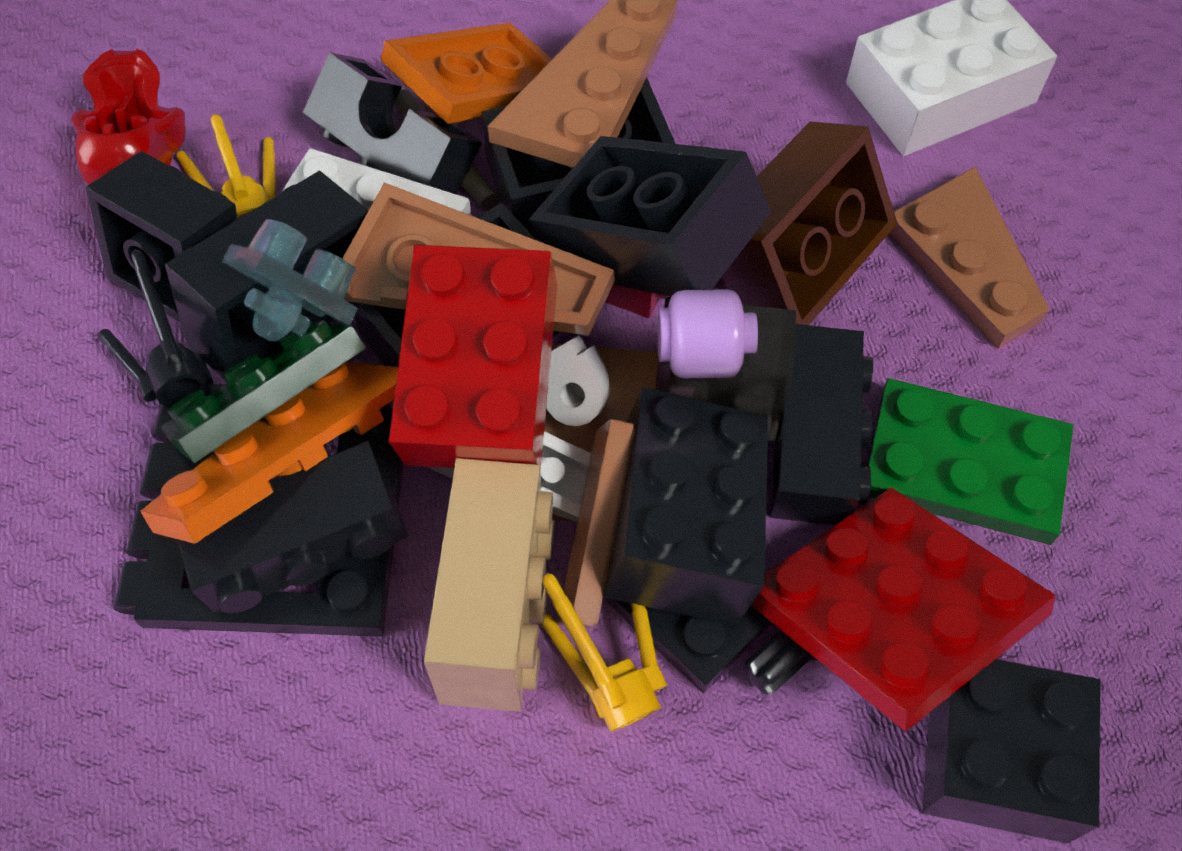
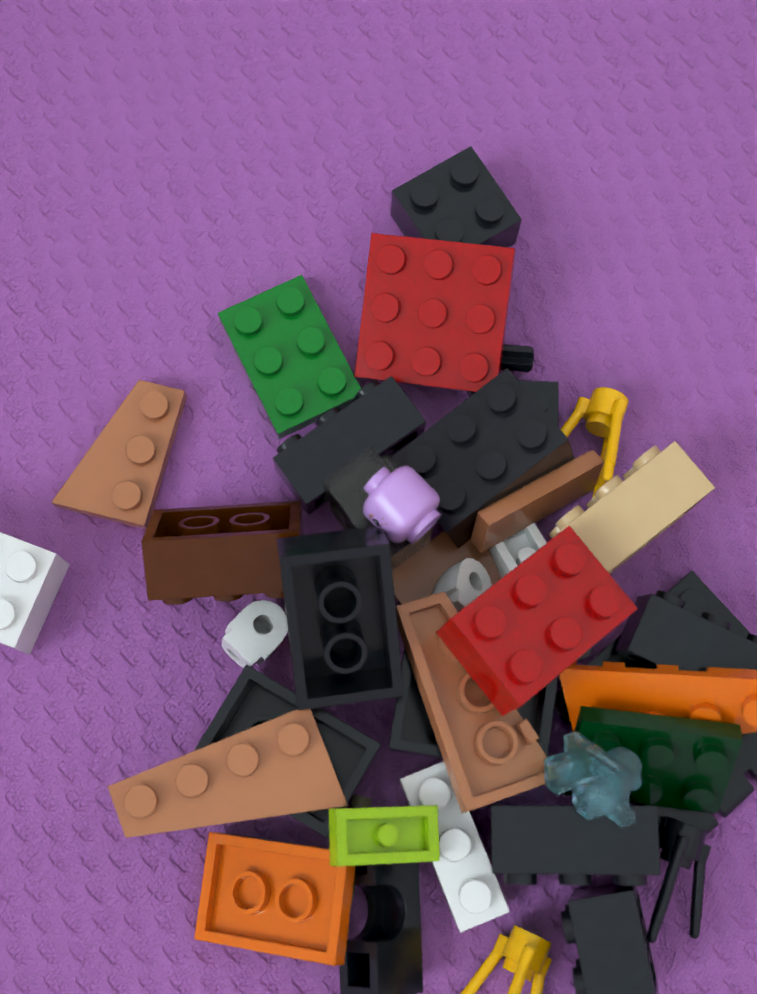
camera: 135 degrees left, 15 degrees up
(436, 127) = (383, 835): none -> lime plate

